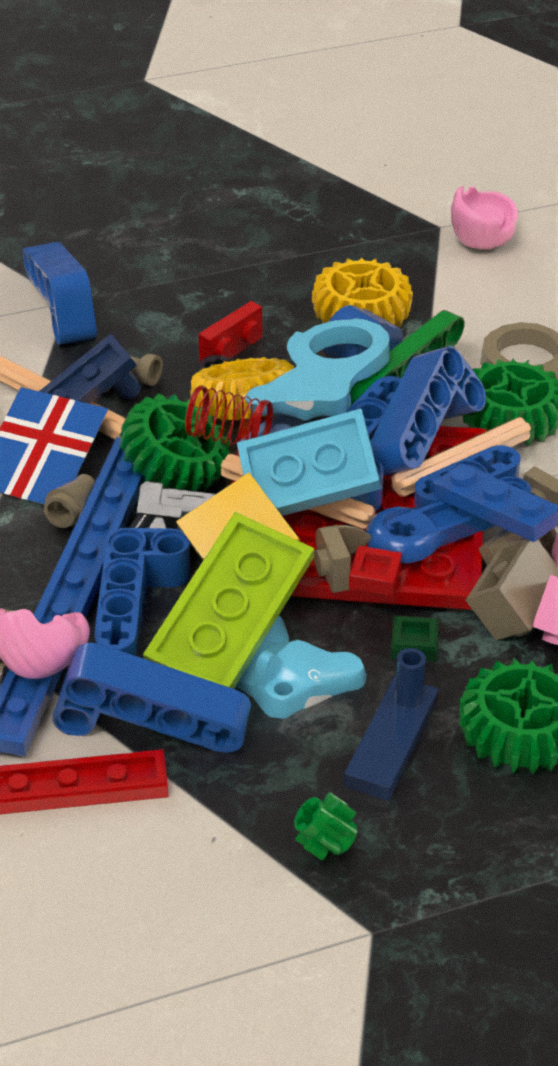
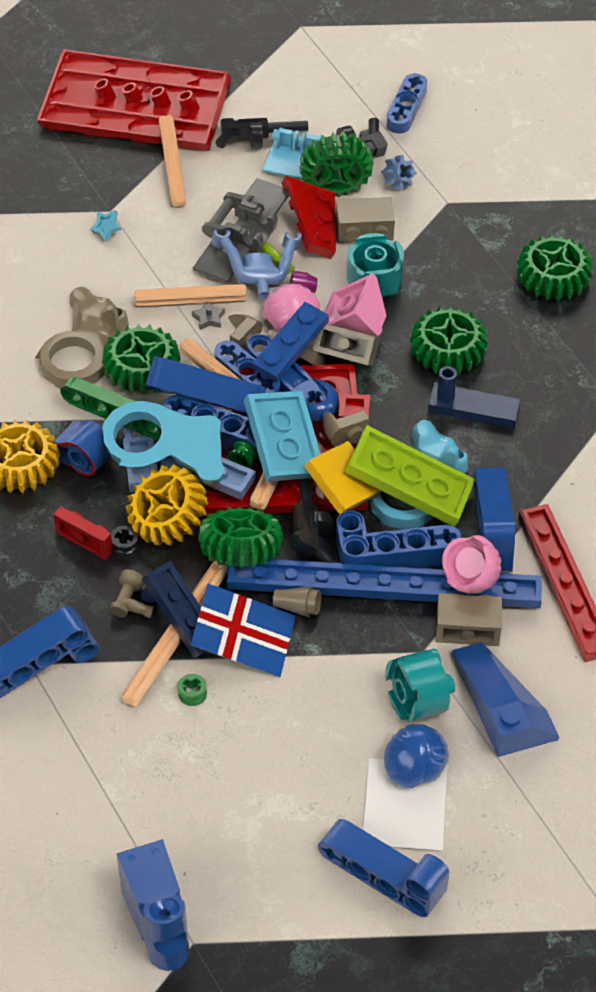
camera: 100 degrees left, 10 degrees up
(205, 411) = (234, 493): red piece -> none
(325, 826) = (570, 425): green gear -> none
(415, 633) = (386, 401): dark green tile -> none

